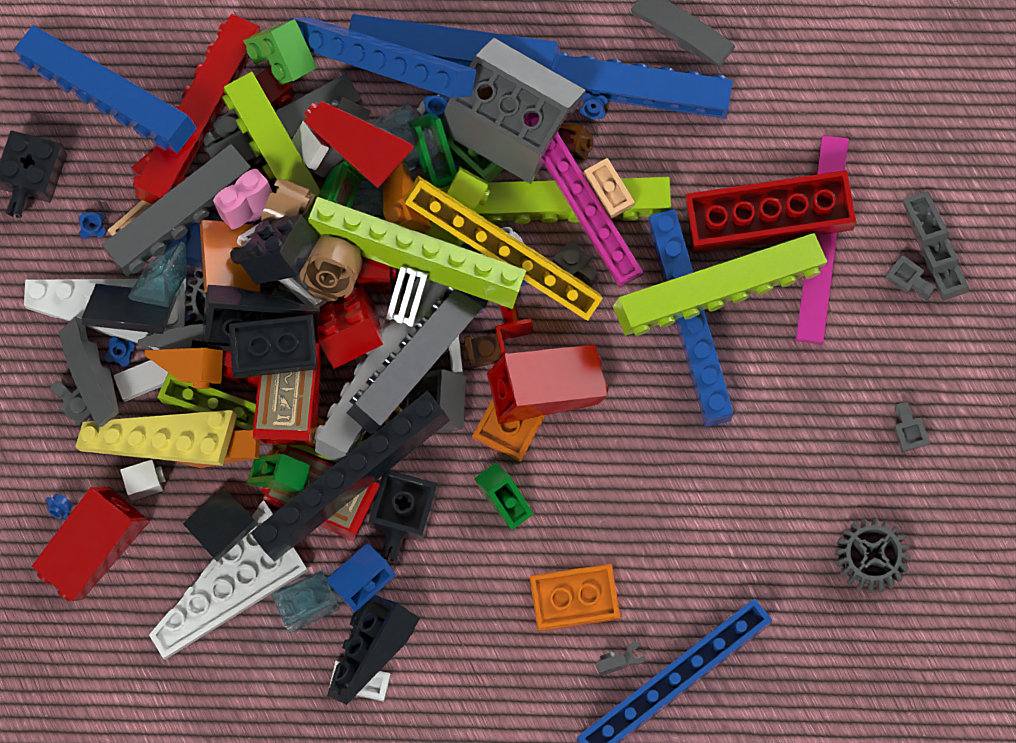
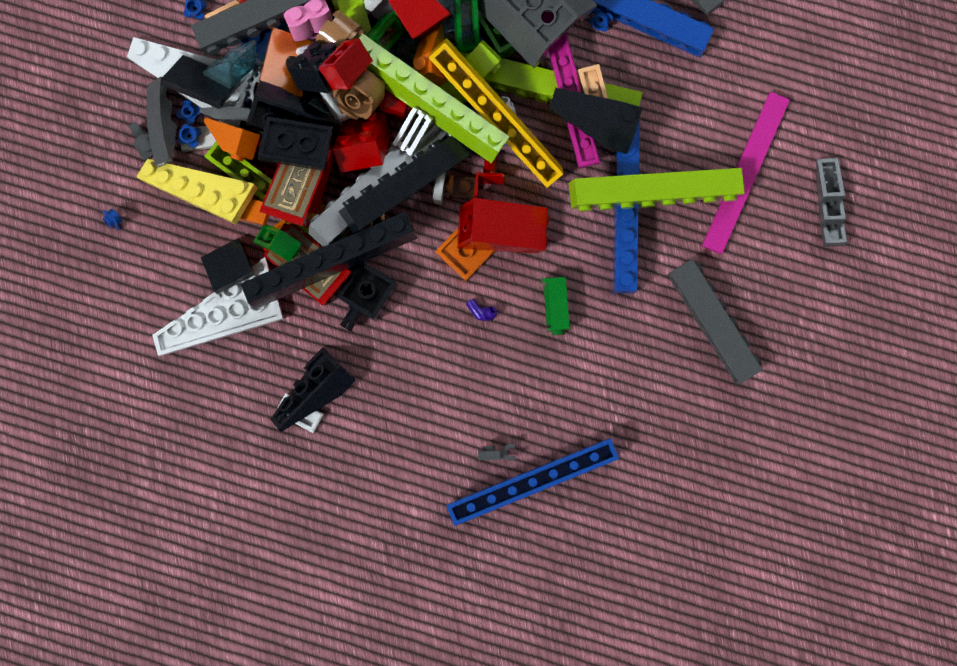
camera: 20 degrees right, 10 degrees up
(89, 542) = (127, 252): red slope -> none
(128, 371) = (185, 131): none -> blue plate
(143, 479) = (179, 216): white brick -> none
(305, 601) = (275, 342): clear light blue slope -> none
(310, 236) = (346, 64): none -> red brick
(361, 577) = (320, 336): blue brick -> none
(448, 391) = (422, 214): dark grey slope -> none
(503, 495) = (445, 304): green slope -> none
(550, 495) = (481, 313): none -> dark purple arm
(574, 597) = (476, 395): orange tile -> none
(576, 262) = (551, 138): dark grey plate -> none
(577, 139) = (579, 42): reddish brown bracket -> none
(629, 220) = (603, 119): none -> black wedge
(640, 459) = (556, 305): none -> green window
(770, 211) = (712, 141): red brick -> none
(839, 426) = (715, 322): none -> dark grey brick
(882, 564) = (715, 436): dark grey gear -> none
(907, 276) = (802, 220): dark grey plate -> none
(909, 432) = (767, 342): dark grey plate -> none

